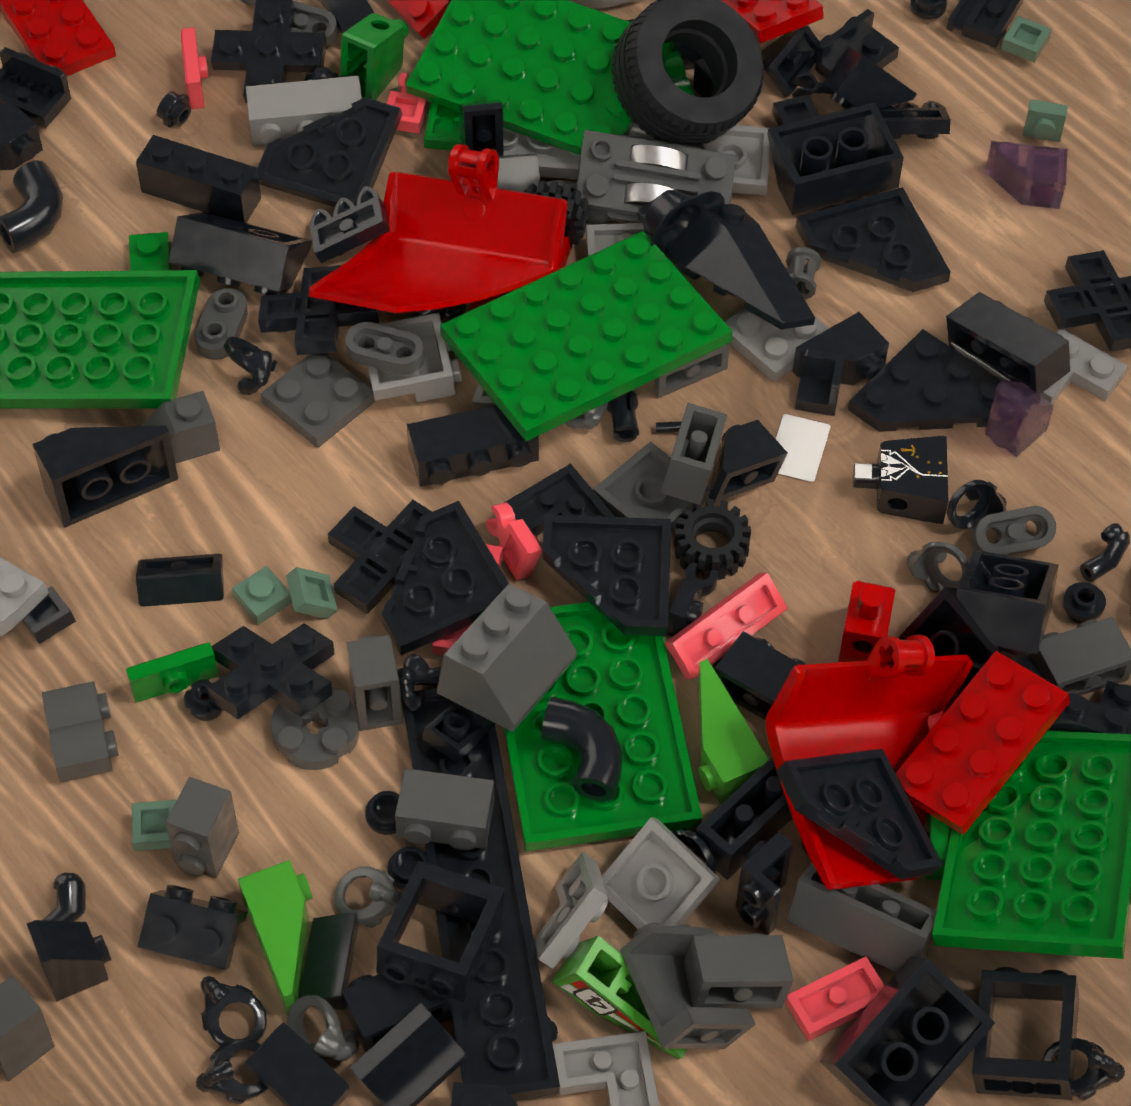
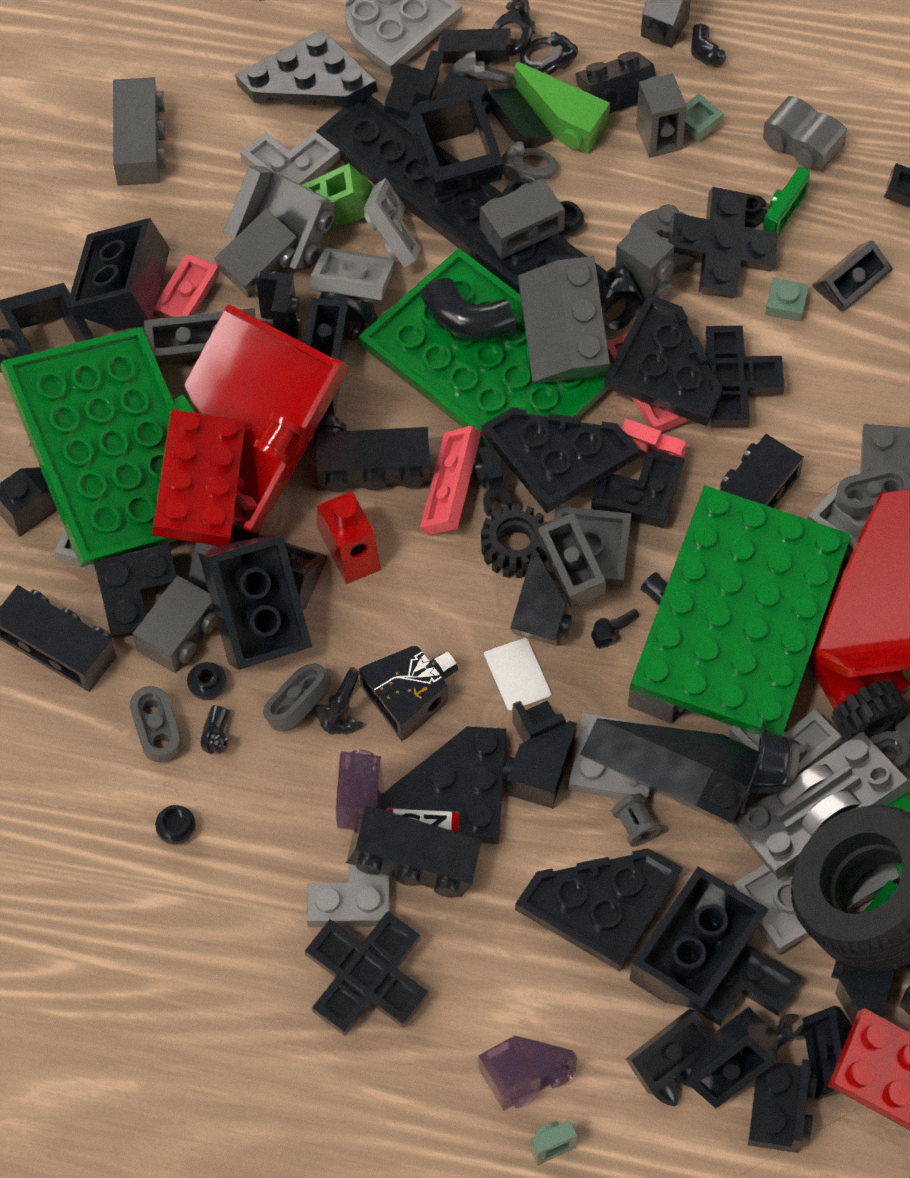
camera: 145 degrees right, 5 degrees up
(311, 593) = (751, 312): sand green plate -> none
(726, 743) = (383, 397): bright green slope -> none
(863, 806) = (245, 367): black plate -> none
(925, 567) = (346, 627): dark grey piece -> none

